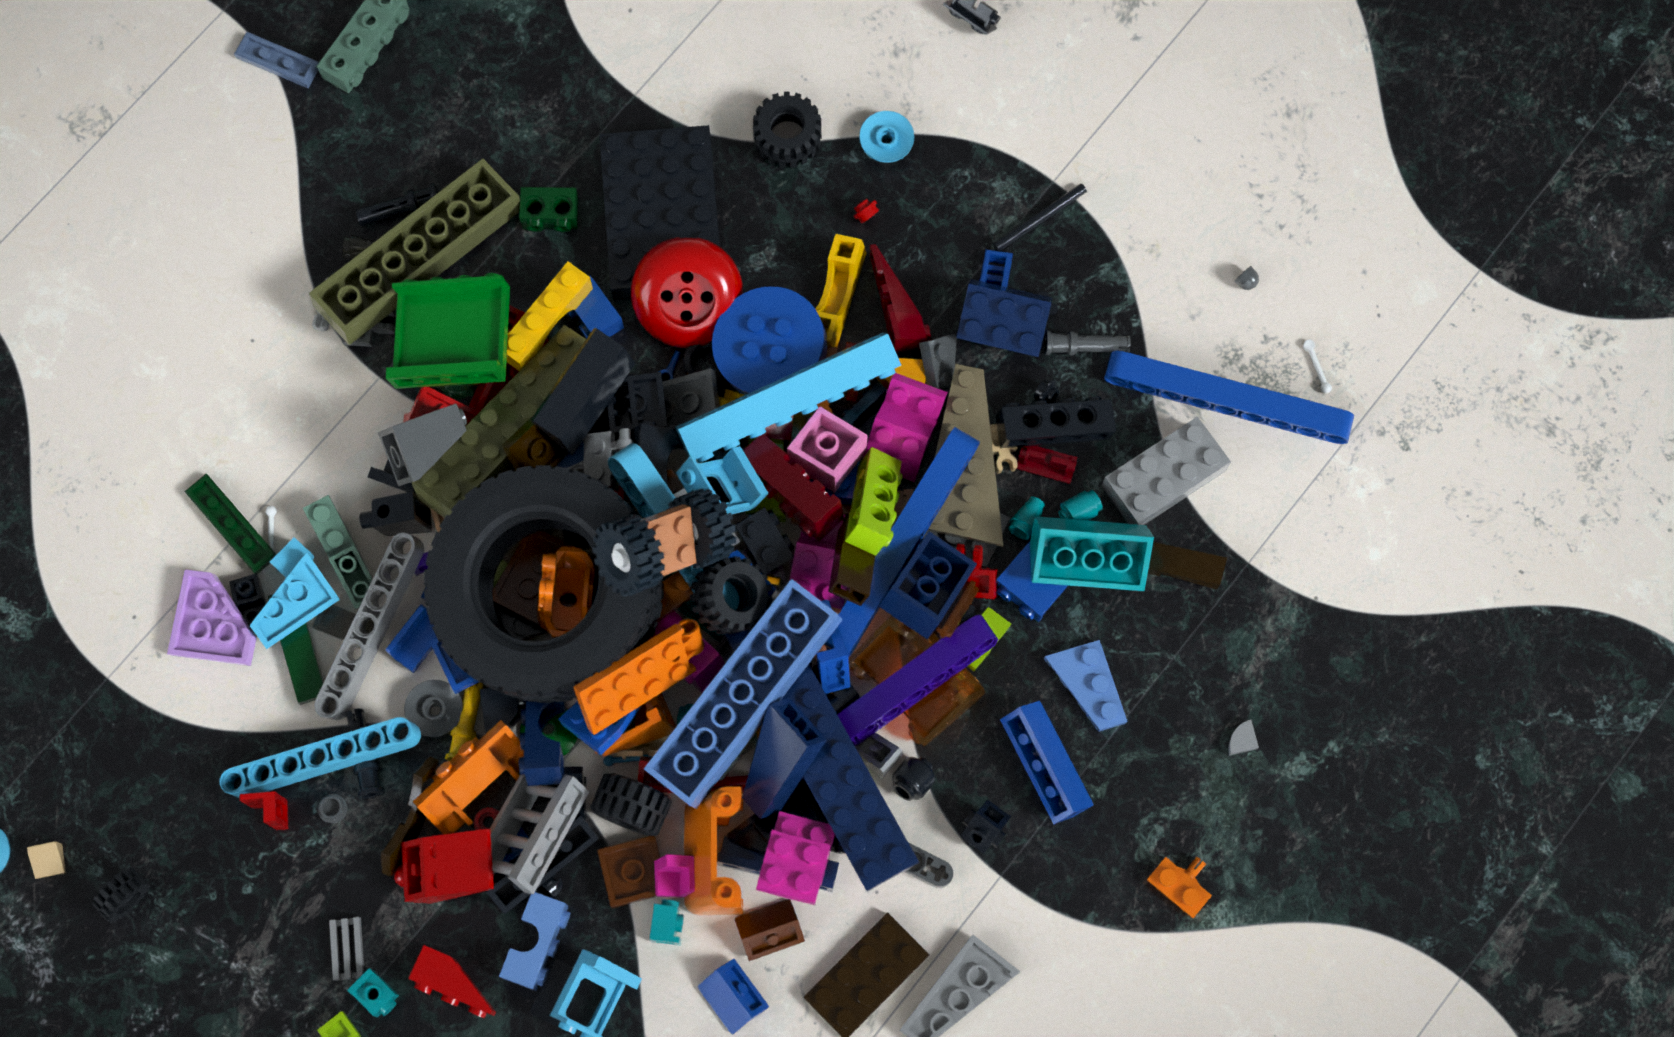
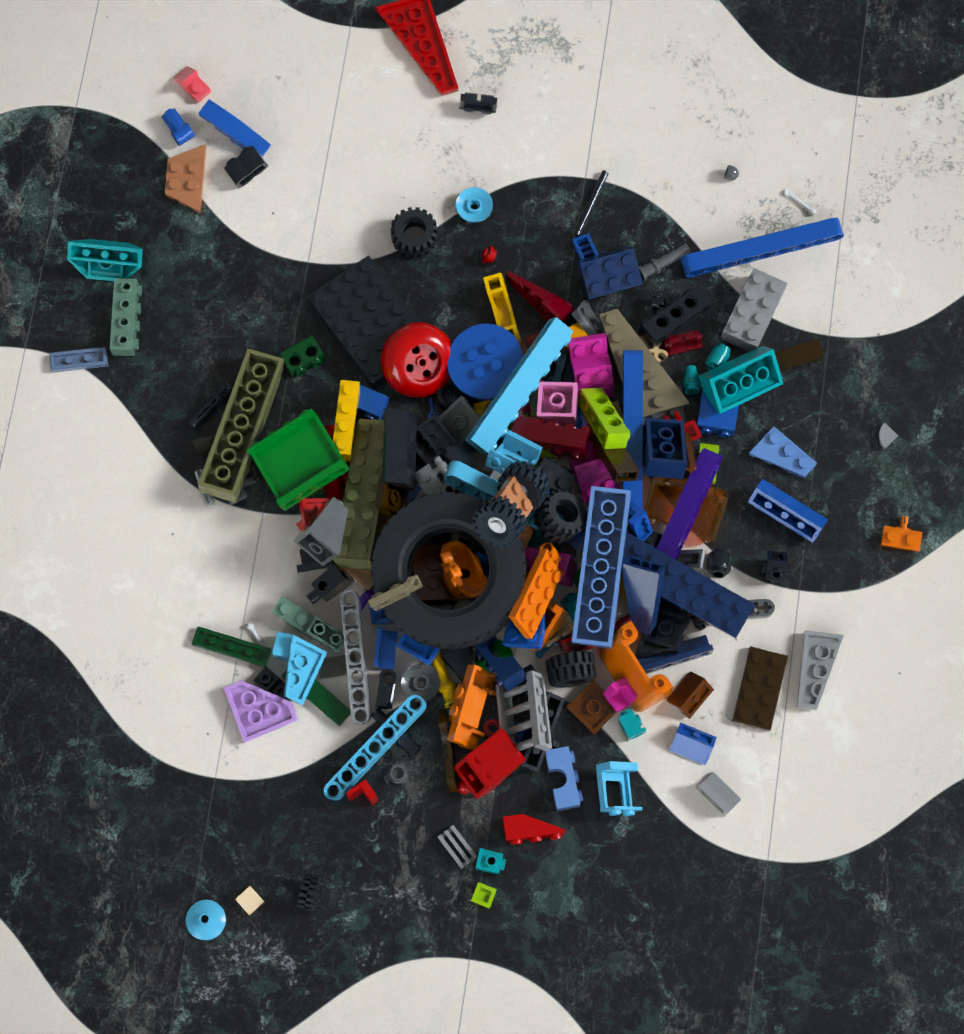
camera: 30 degrees left, 0 degrees up
(383, 694) = (386, 691): none -> black piece
(450, 572) = (395, 593): none -> dark tan hinge
(796, 858) = (685, 642): dark pink bracket -> none

